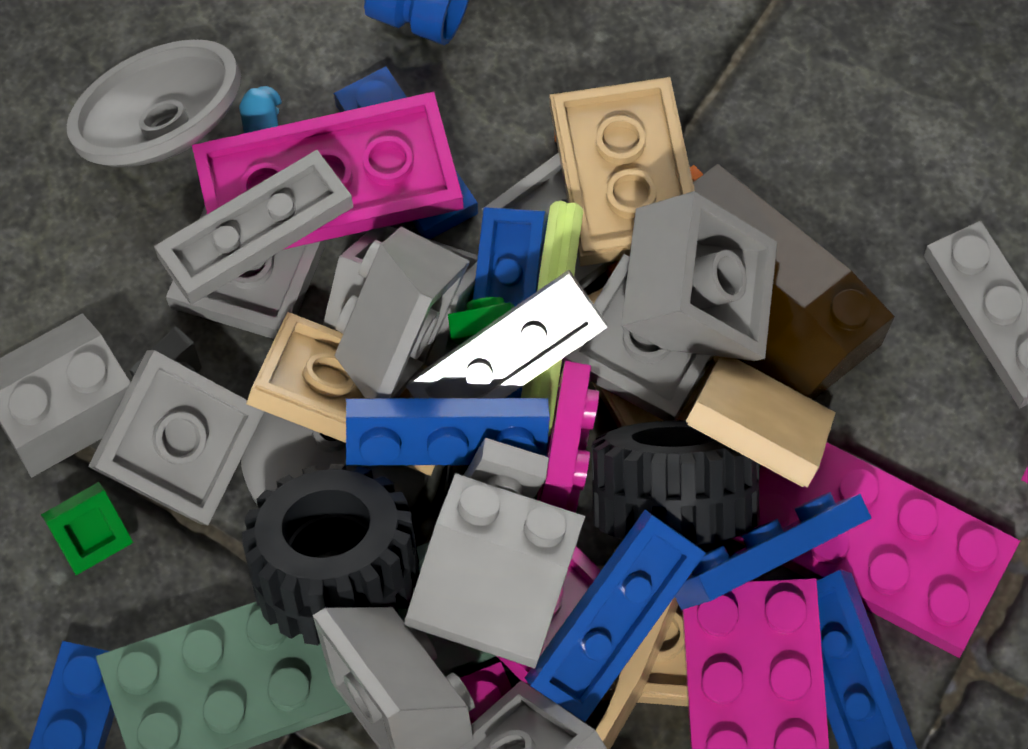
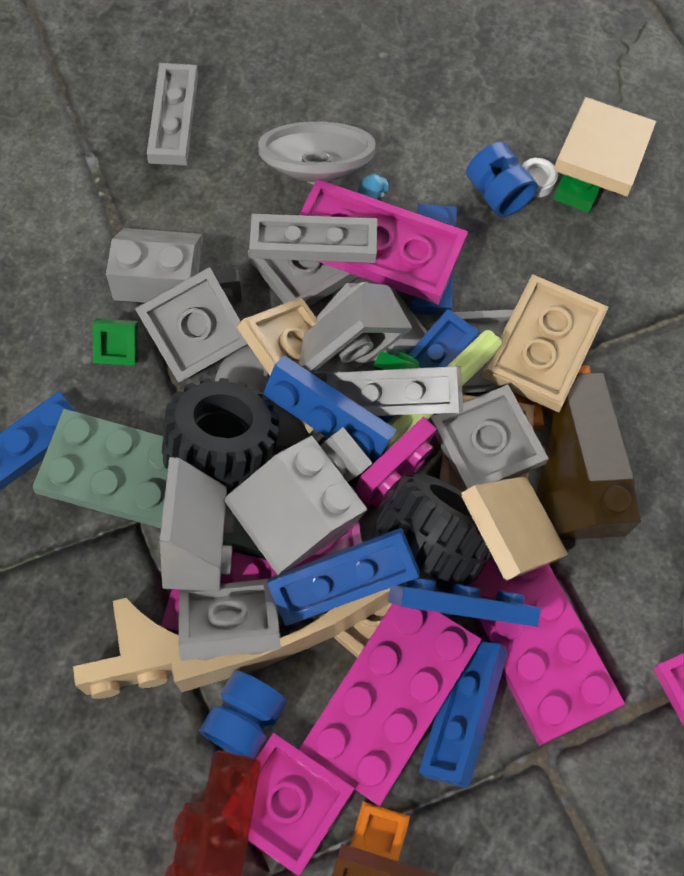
camera: 30 degrees right, 0 degrees up
(699, 279) = (538, 424): light grey slope -> none

